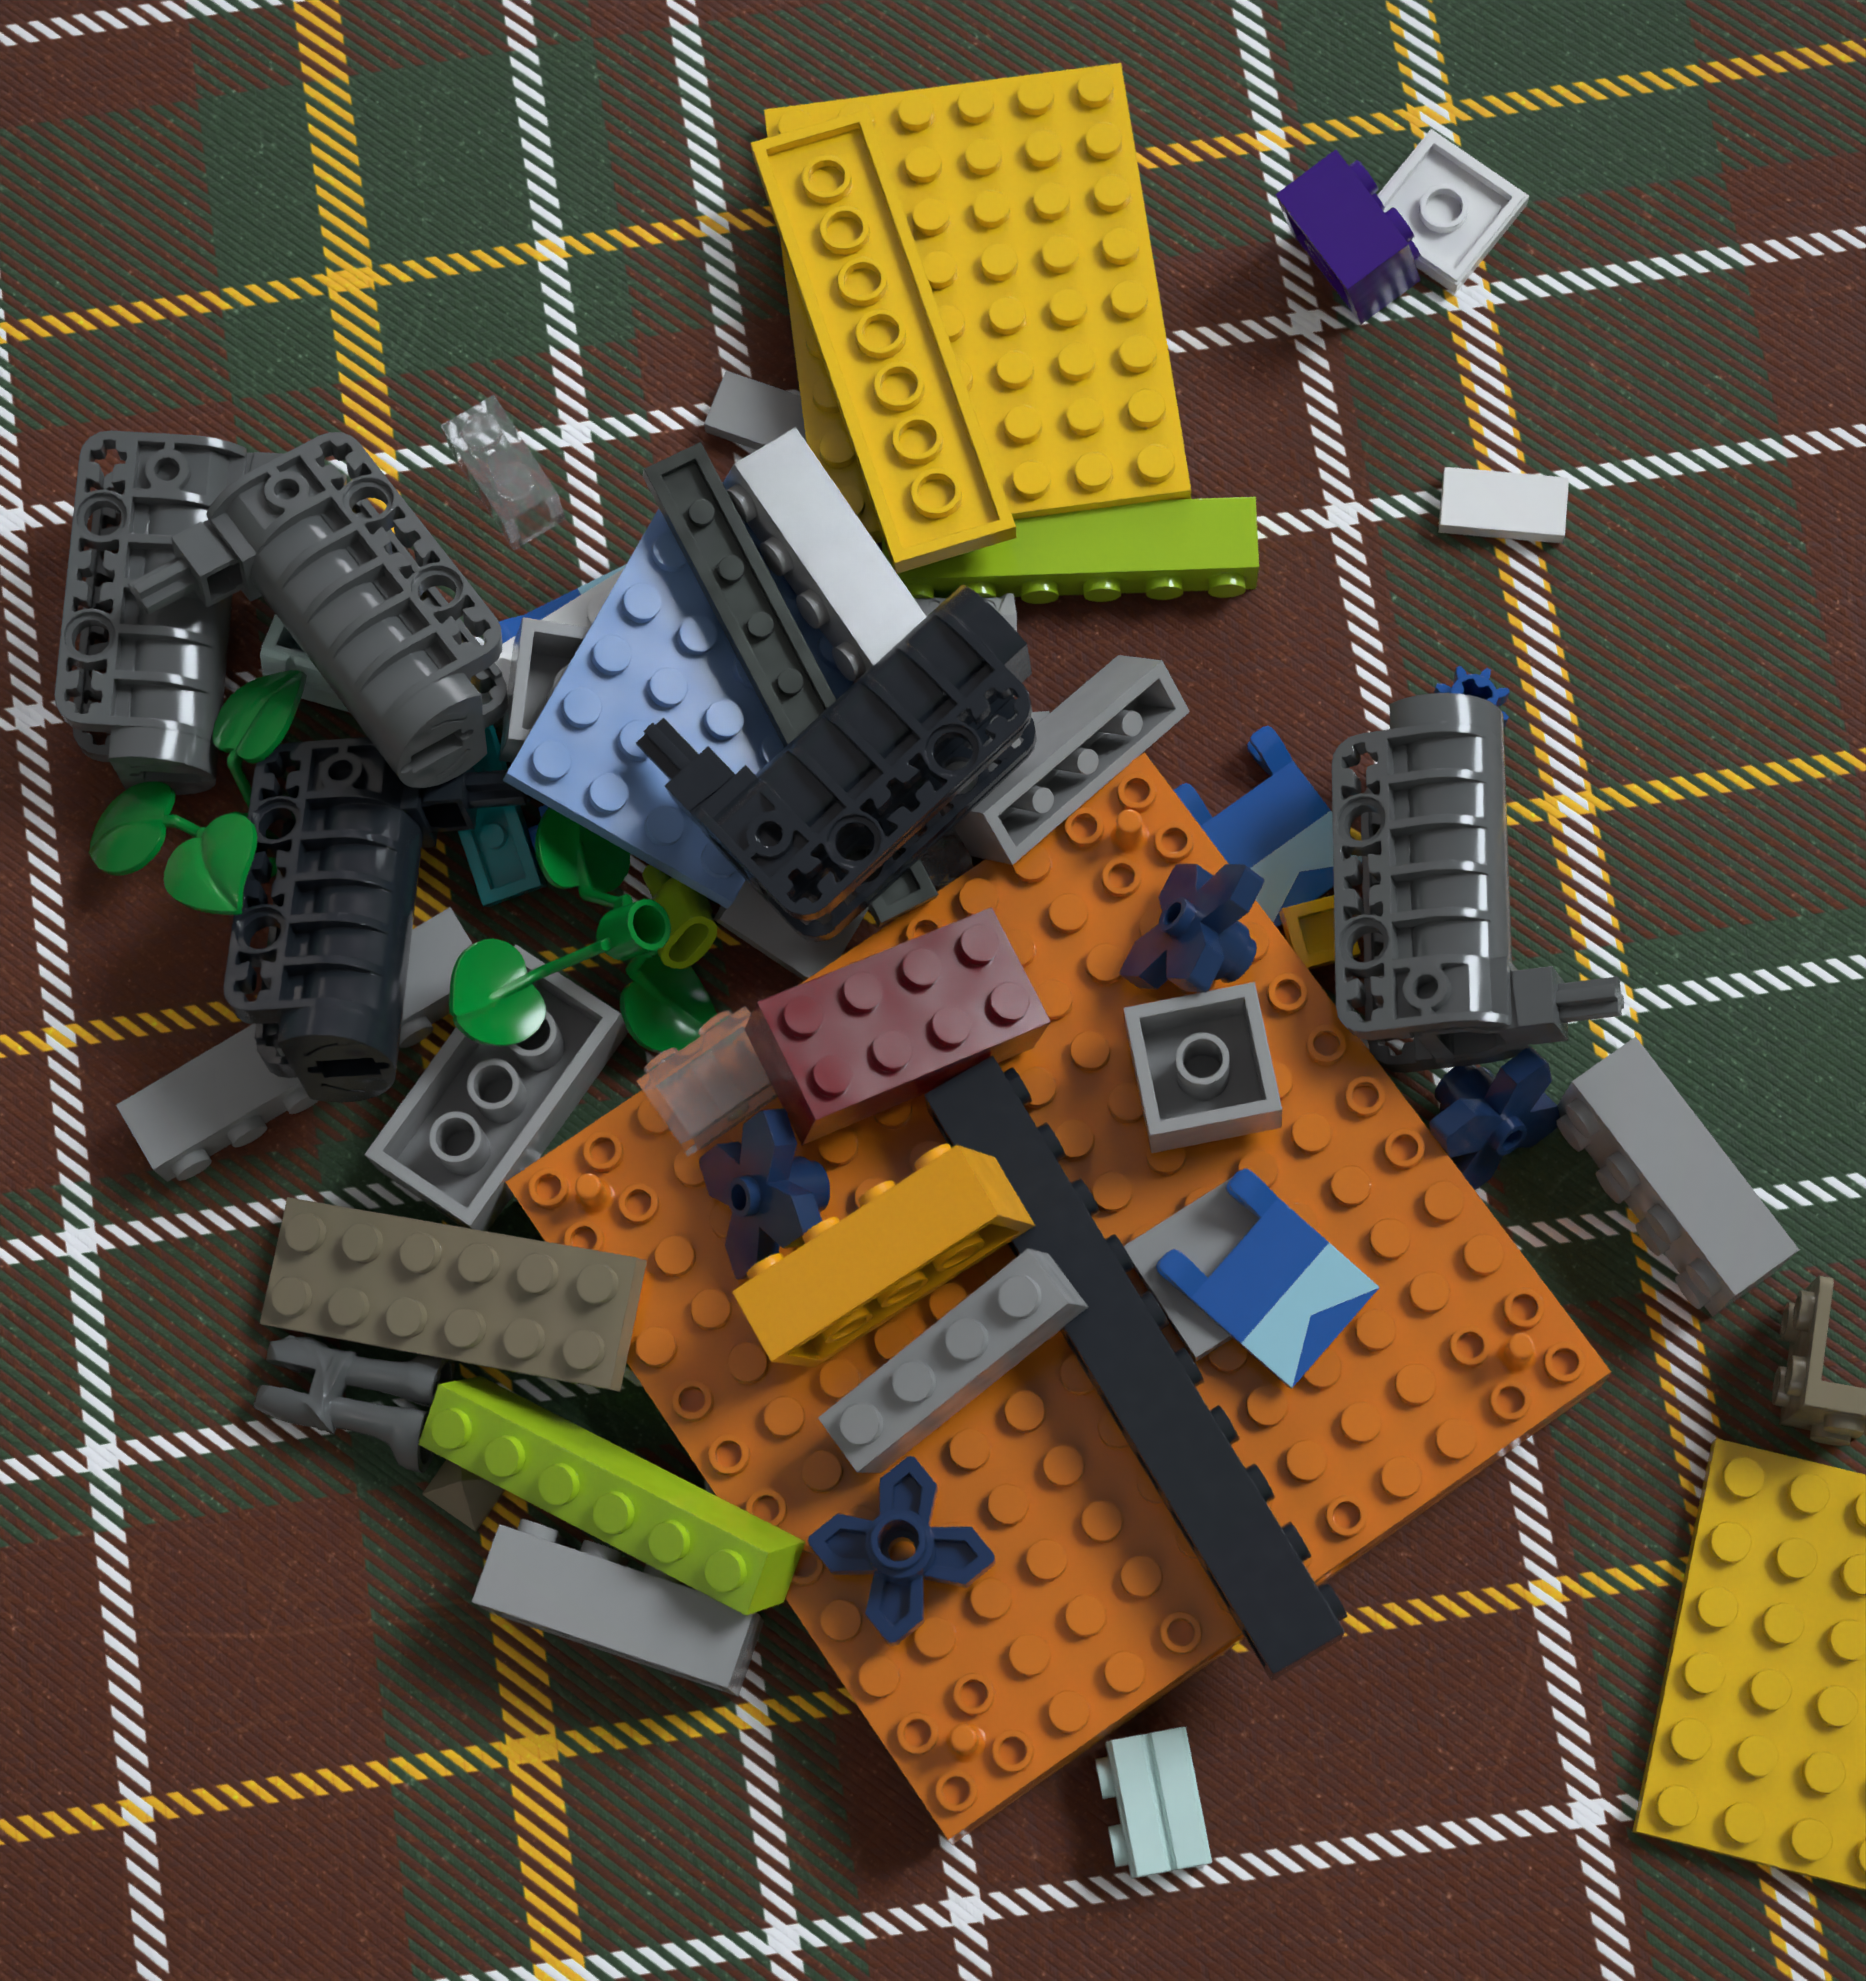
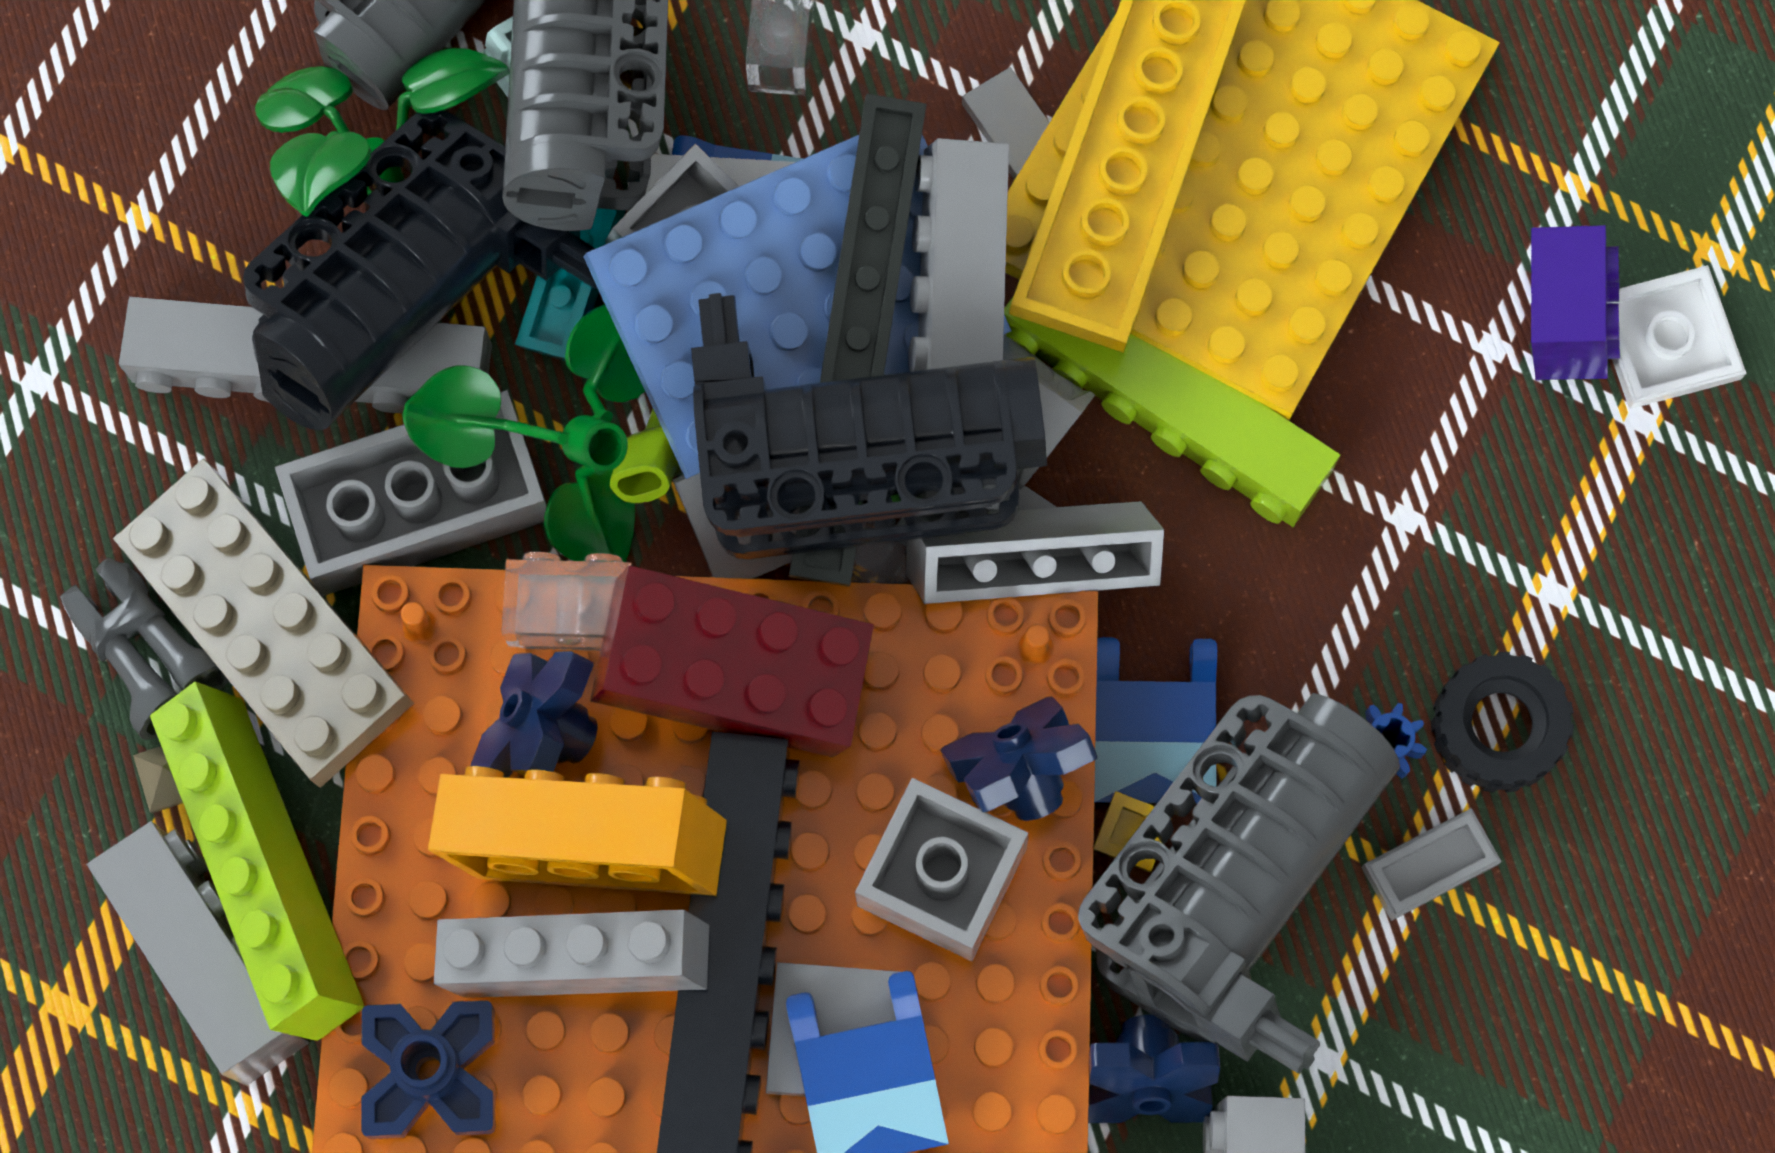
camera: 30 degrees right, 0 degrees up
(1503, 505) = (1538, 602): white tile -> none
(1555, 576) = (1535, 689): none -> black tyre
(1580, 782) = (1431, 864): none -> light grey tile

